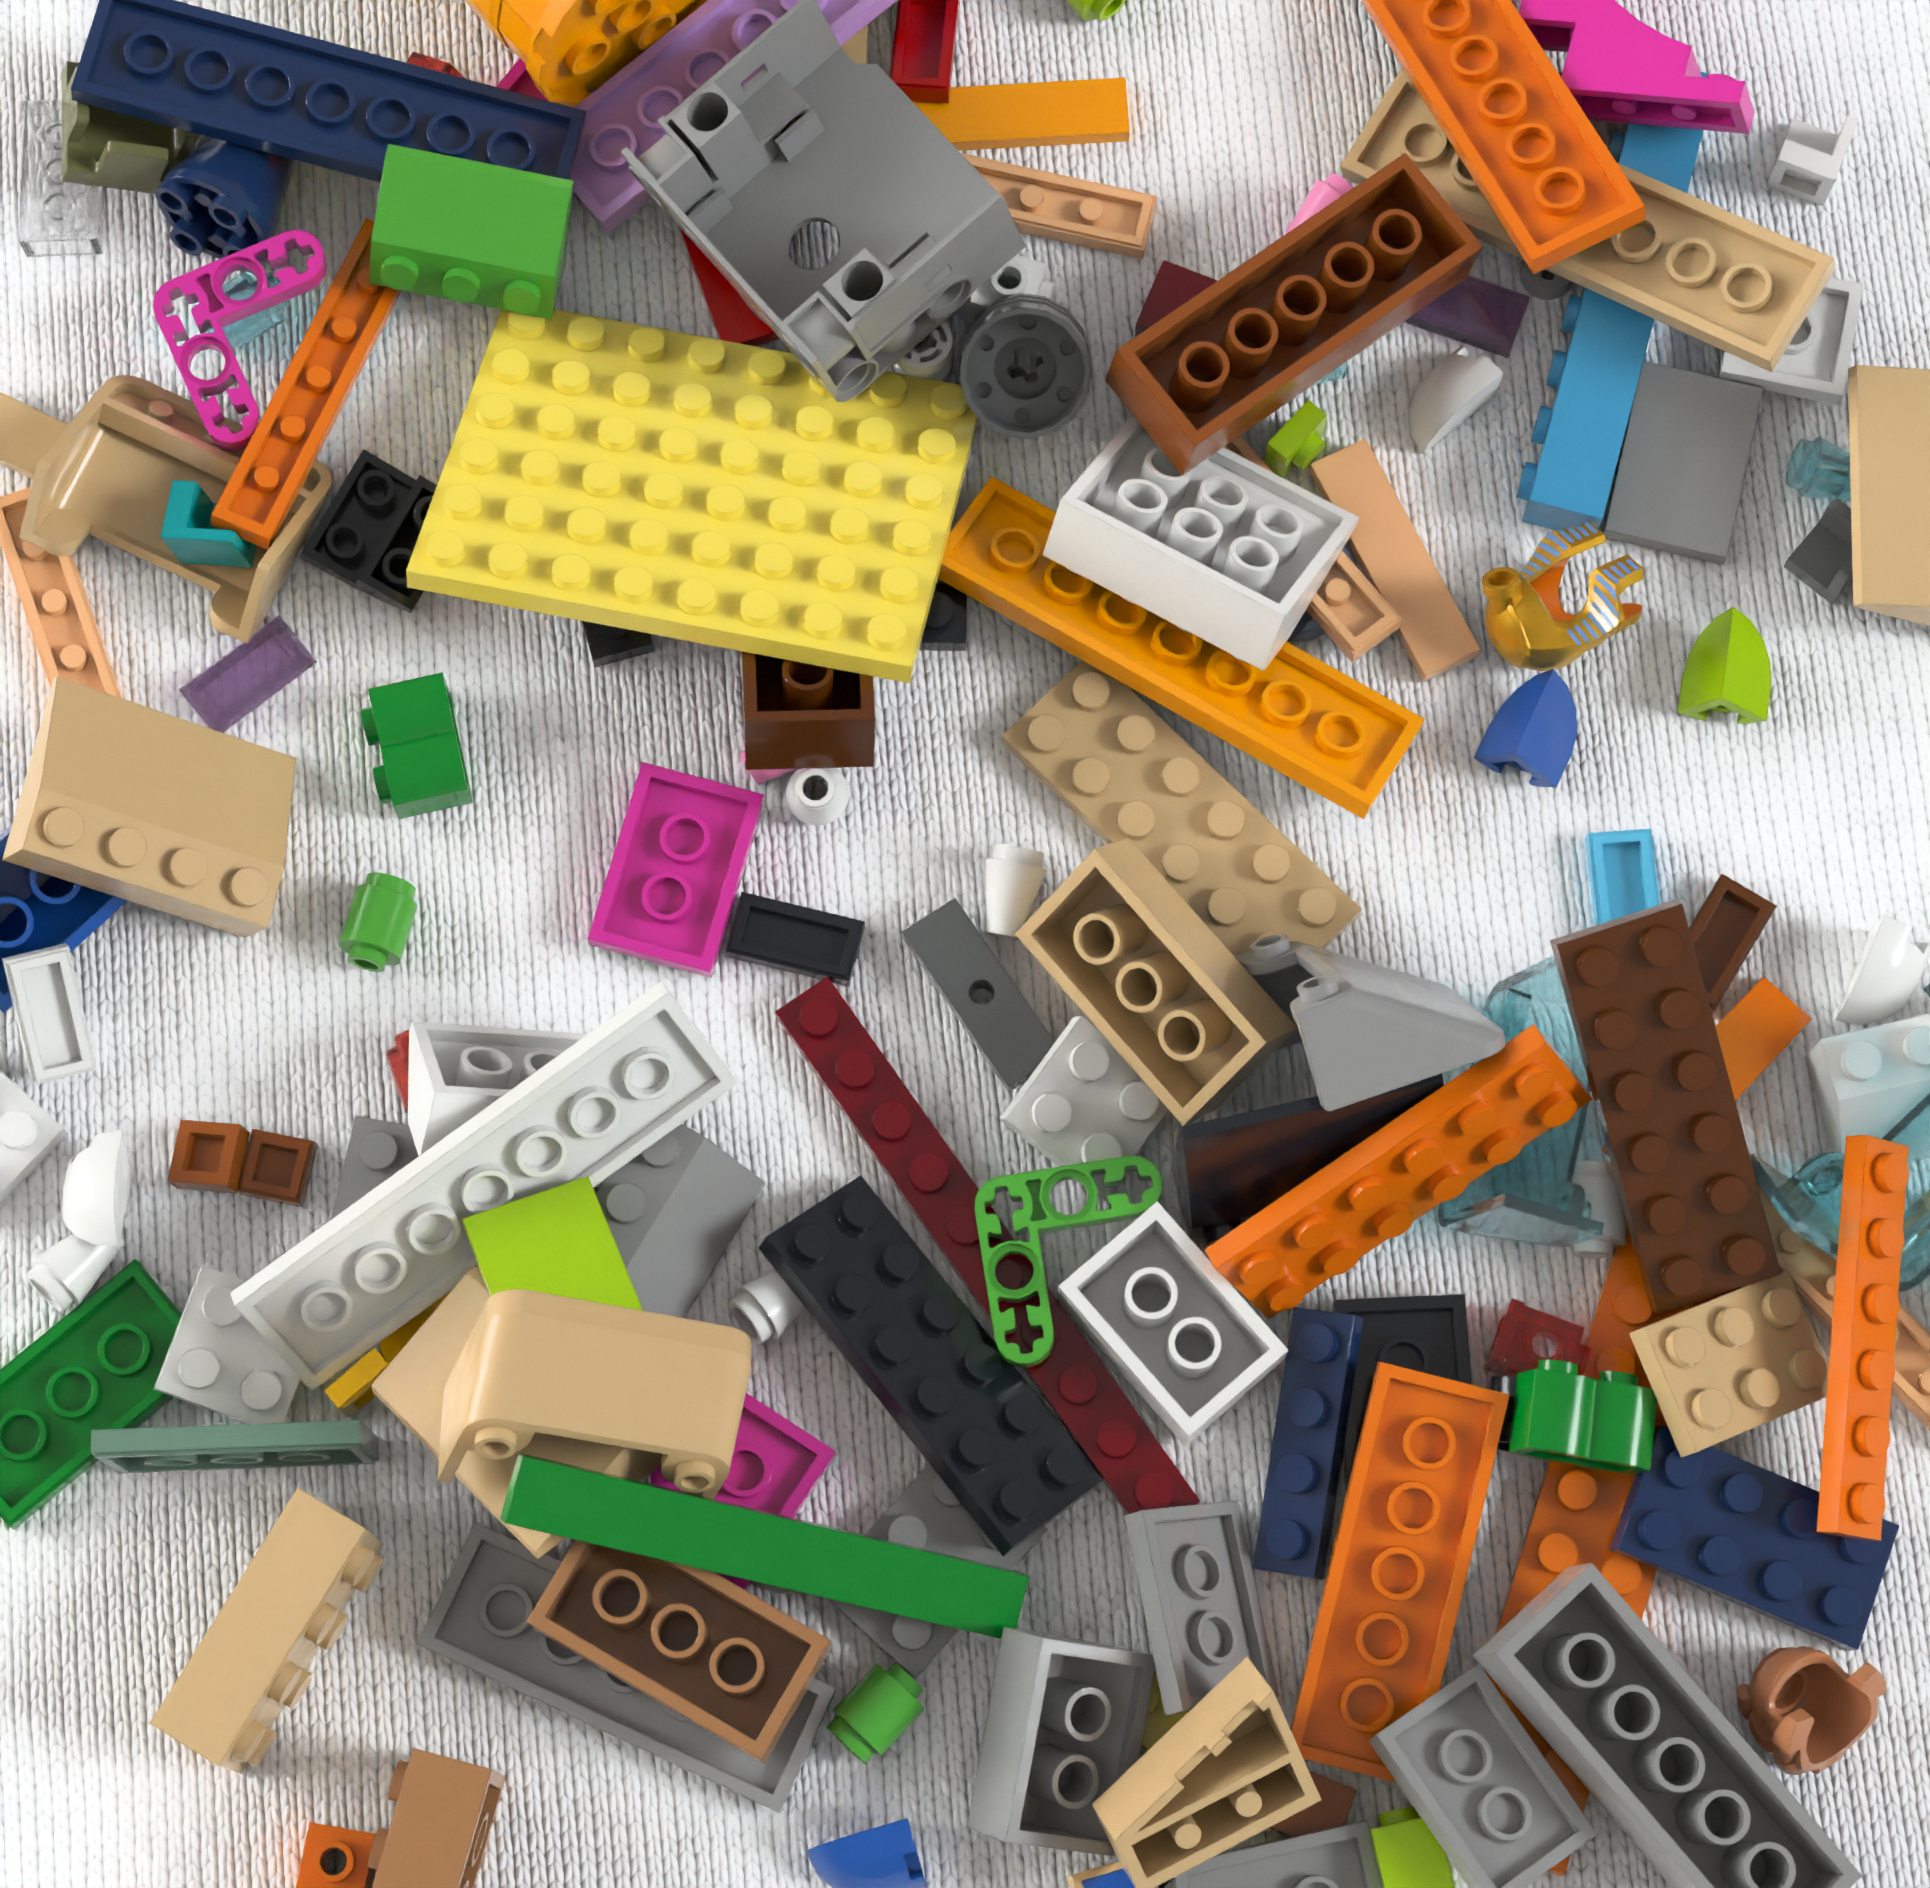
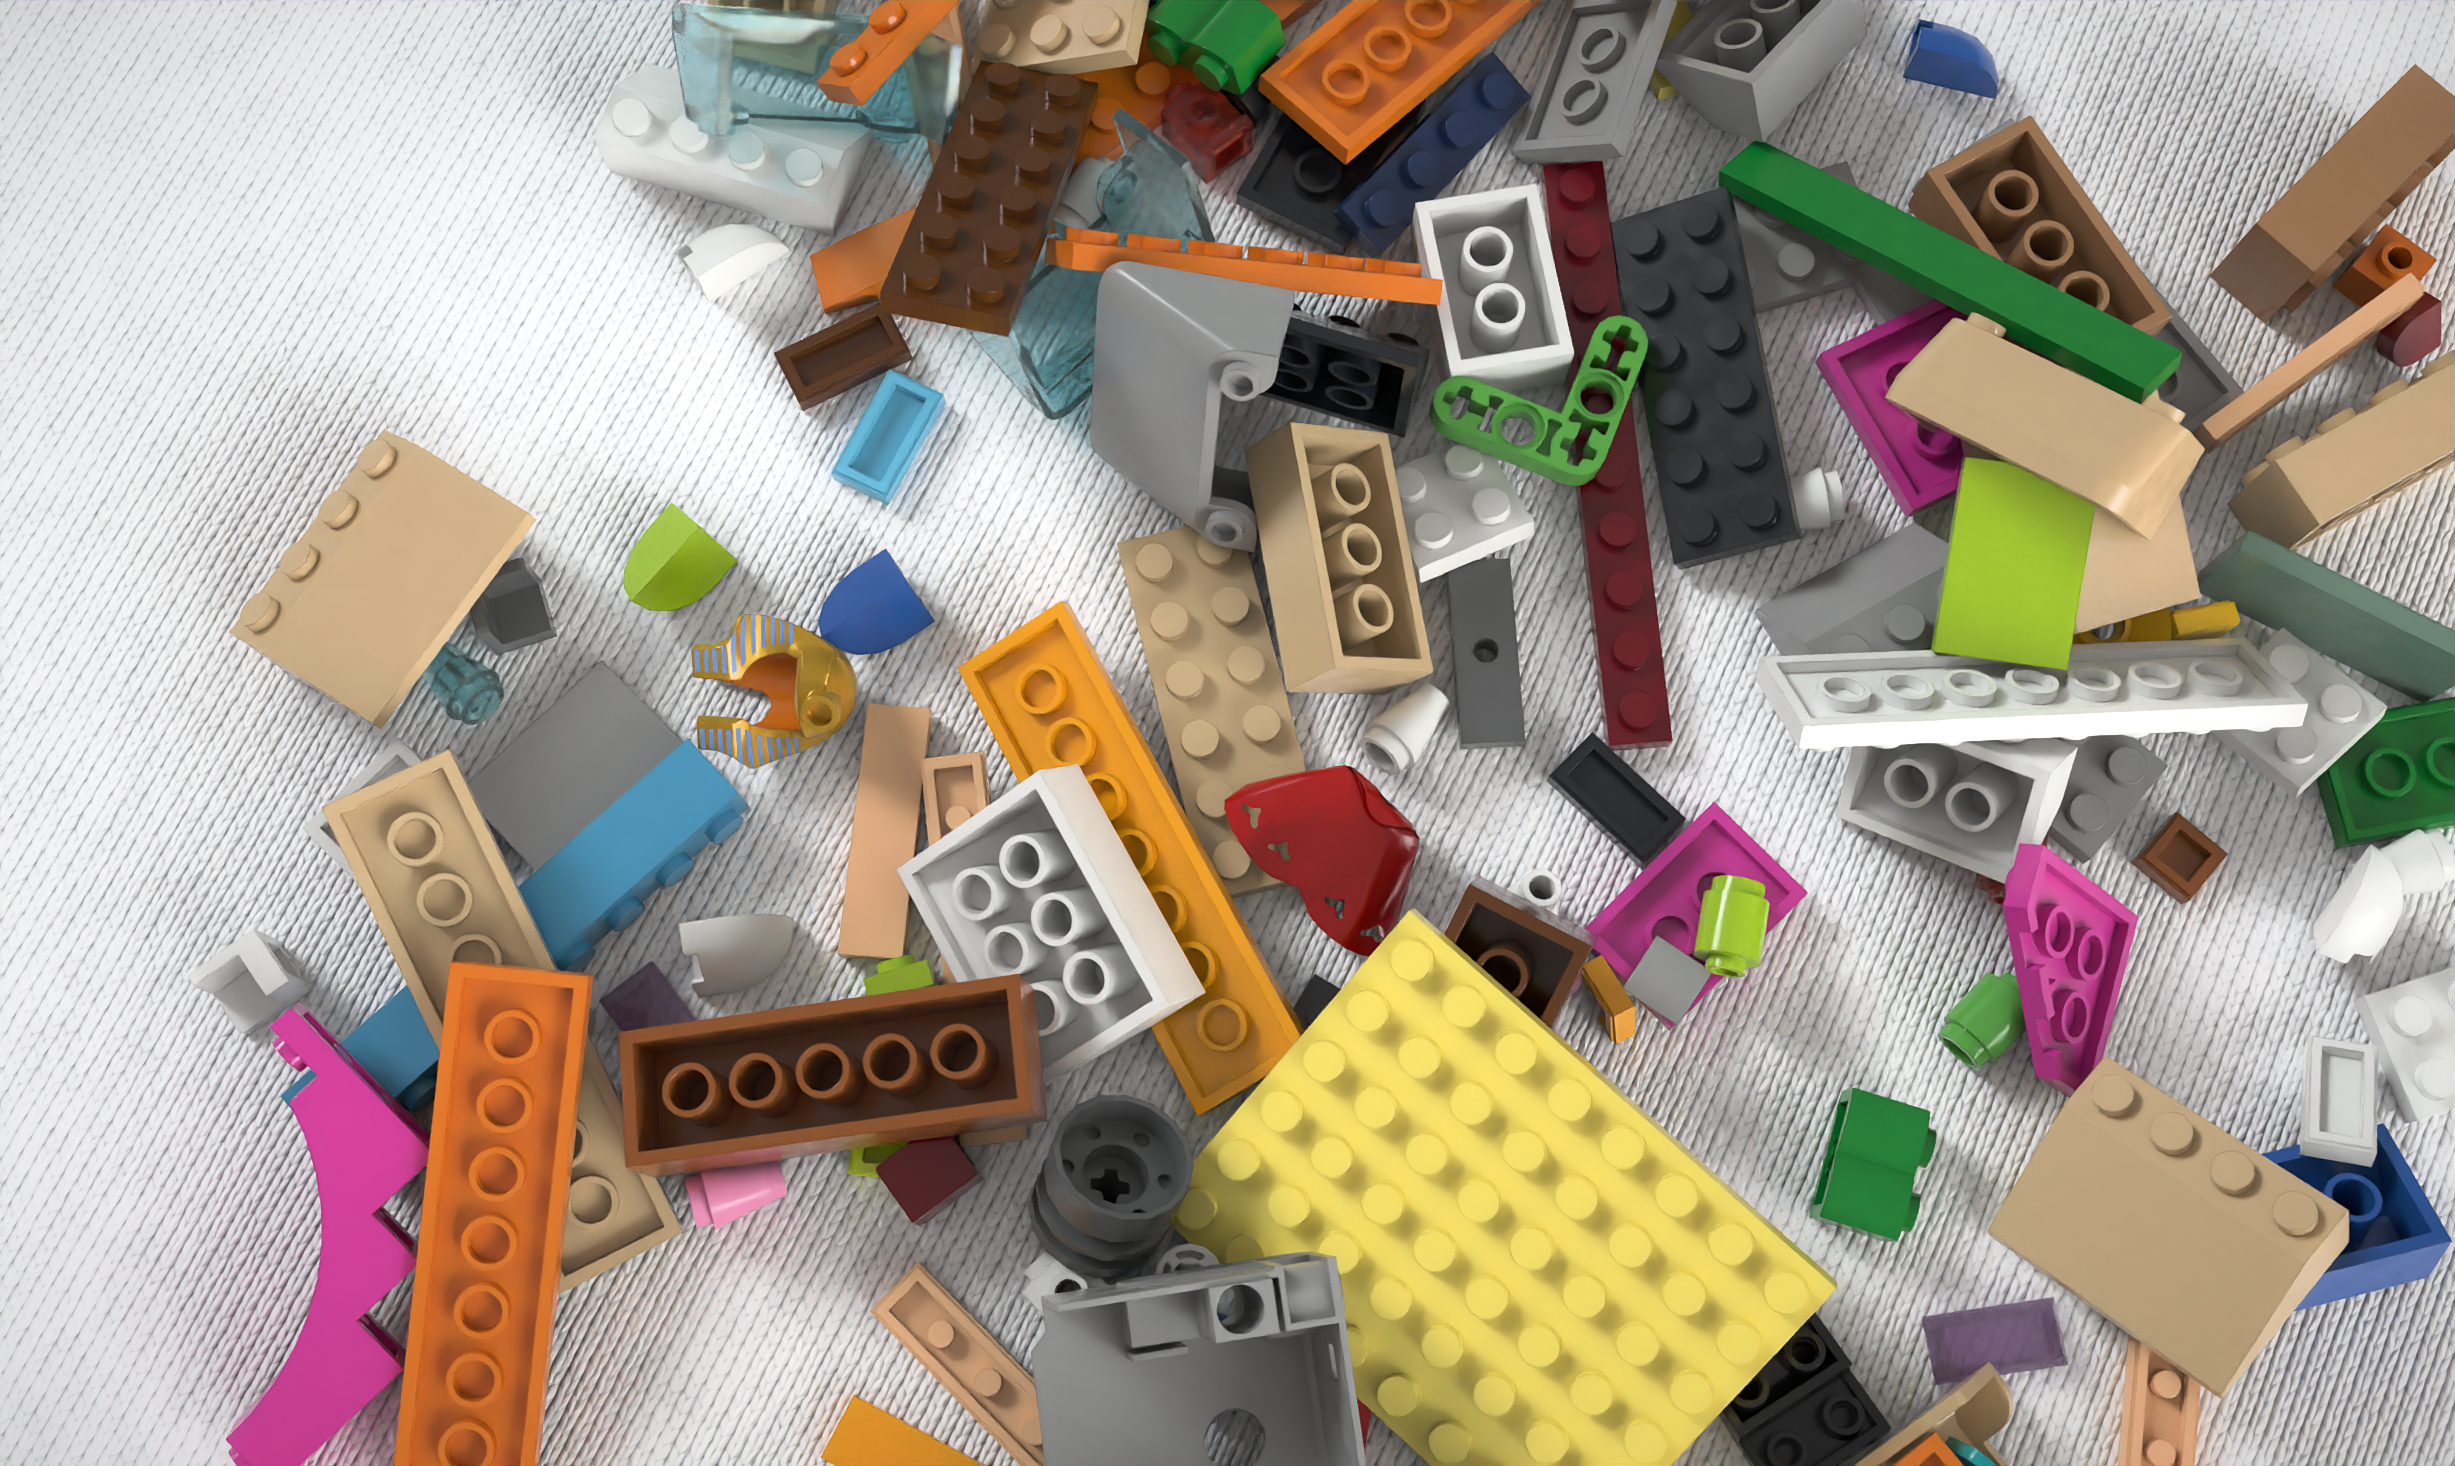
camera: 150 degrees left, 0 degrees up
(208, 1156) = (2242, 894): dark orange plate -> none
(287, 1807) = (2412, 333): none -> dark red tile
(337, 990) = (2068, 962): none -> dark pink plate
(371, 1697) = (2309, 363): none -> light nougat tile
(637, 857) = (1732, 926): none -> lime brick
(668, 796) = (1667, 980): none -> light grey sticker
(709, 758) = (1618, 1008): none -> light orange tile
(876, 1711) = (1893, 149): bright green brick -> none
(1013, 744) = (1340, 845): none -> red piece

